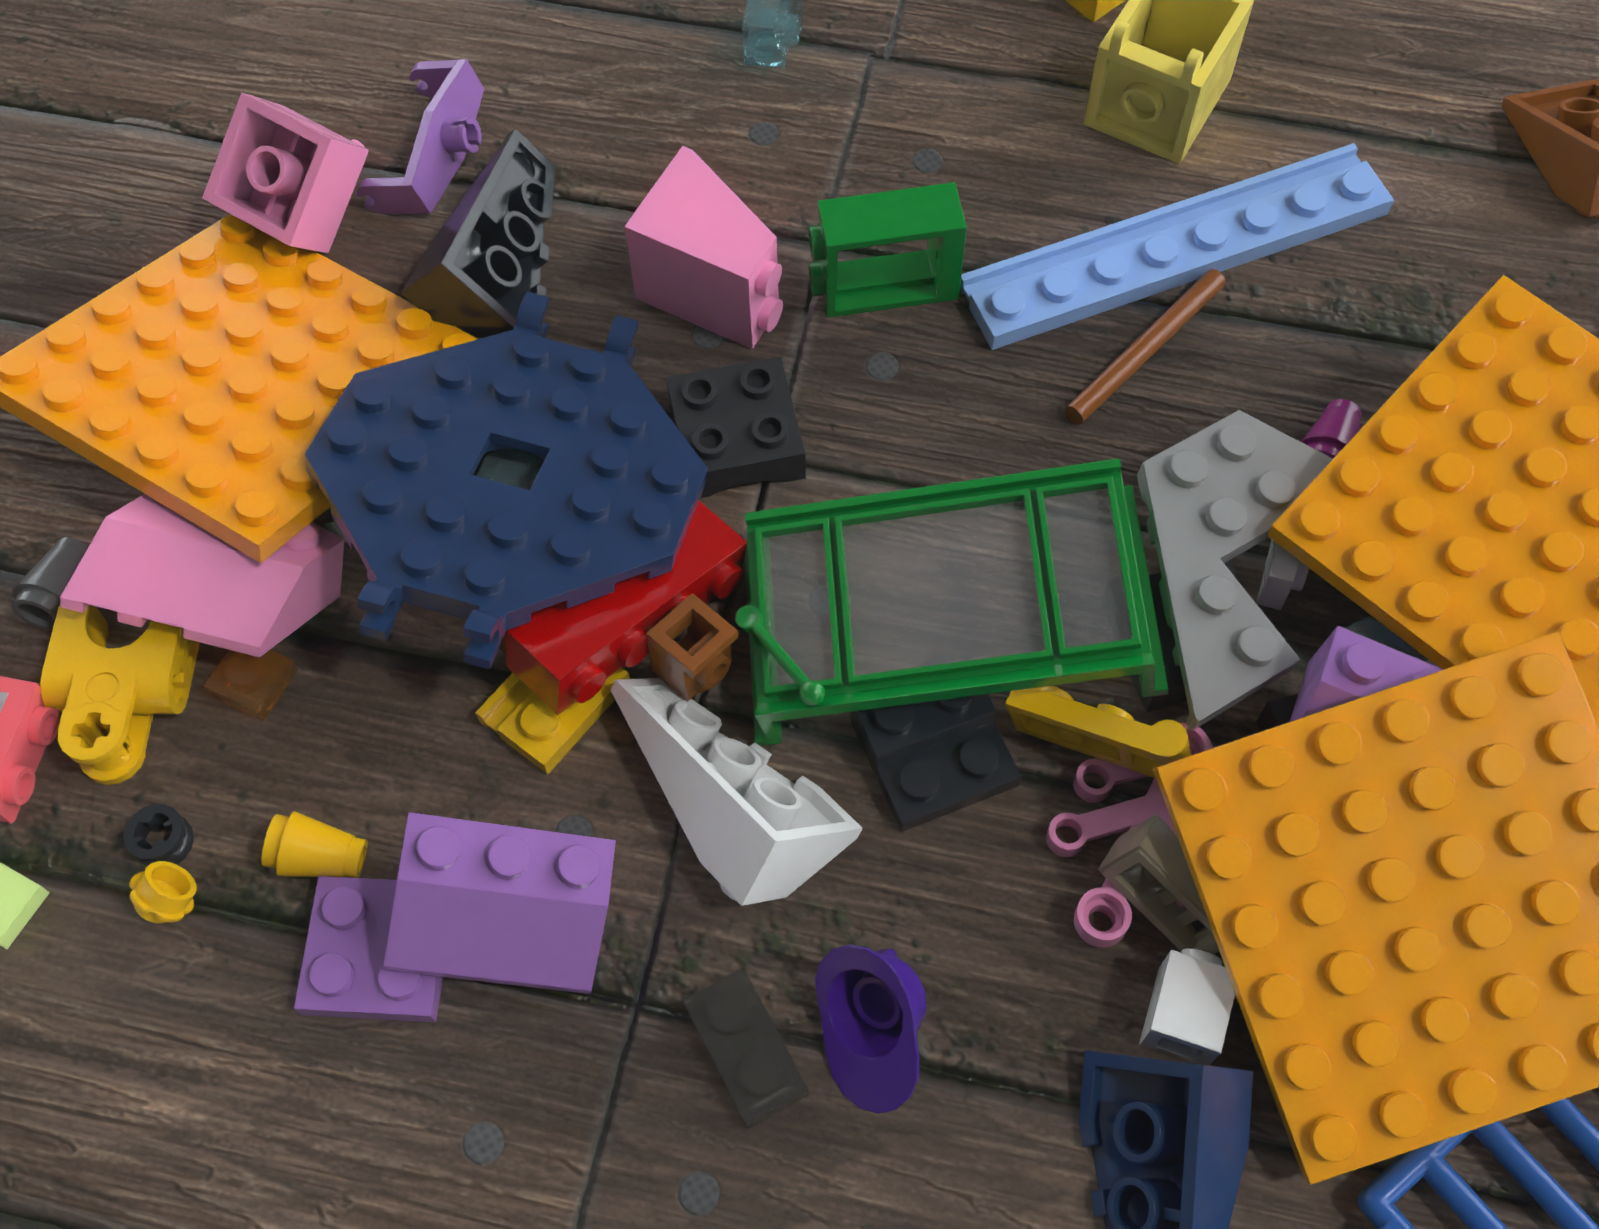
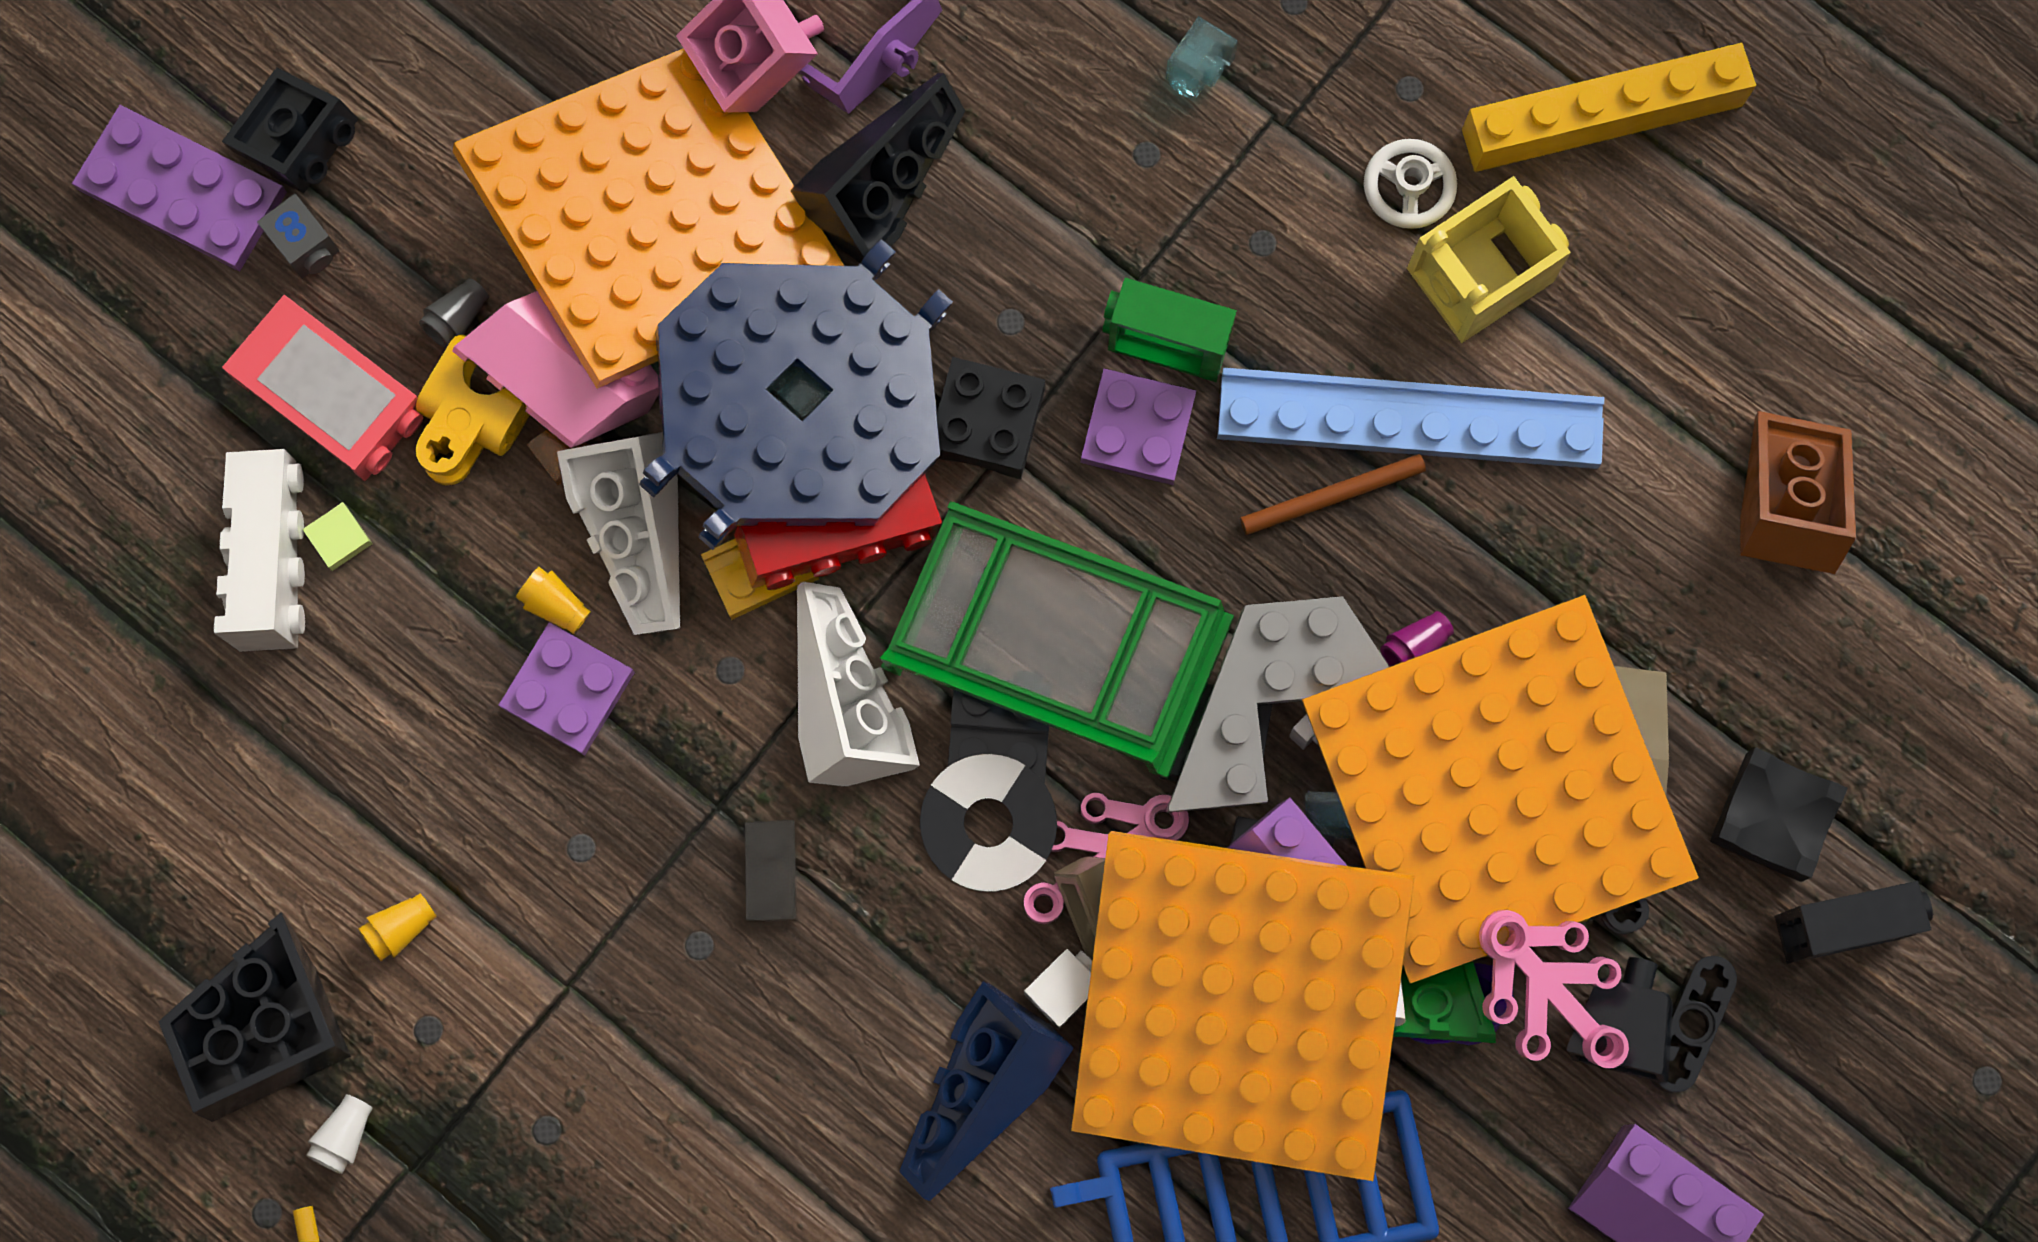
camera: 25 degrees right, 15 degrees up
(154, 819) = (455, 554): black bush -> none
(163, 892) = (445, 584): yellow plate -> none
(368, 711) = (629, 526): none -> white wedge
(499, 904) = (655, 704): medium lavender slope -> none
(700, 656) = (865, 583): dark orange brick -> none
(704, 254) = (1029, 265): bright pink slope -> none
(751, 621) = (912, 587): green hinge -> none
(870, 1024) = (855, 894): dark purple piece -> none
(904, 370) = (1138, 426): none -> medium lavender plate
(969, 914) = (997, 779): none -> sticker
(1040, 44) = (1410, 166): none -> white piece
(1099, 731) = (1114, 785): yellow plate -> none

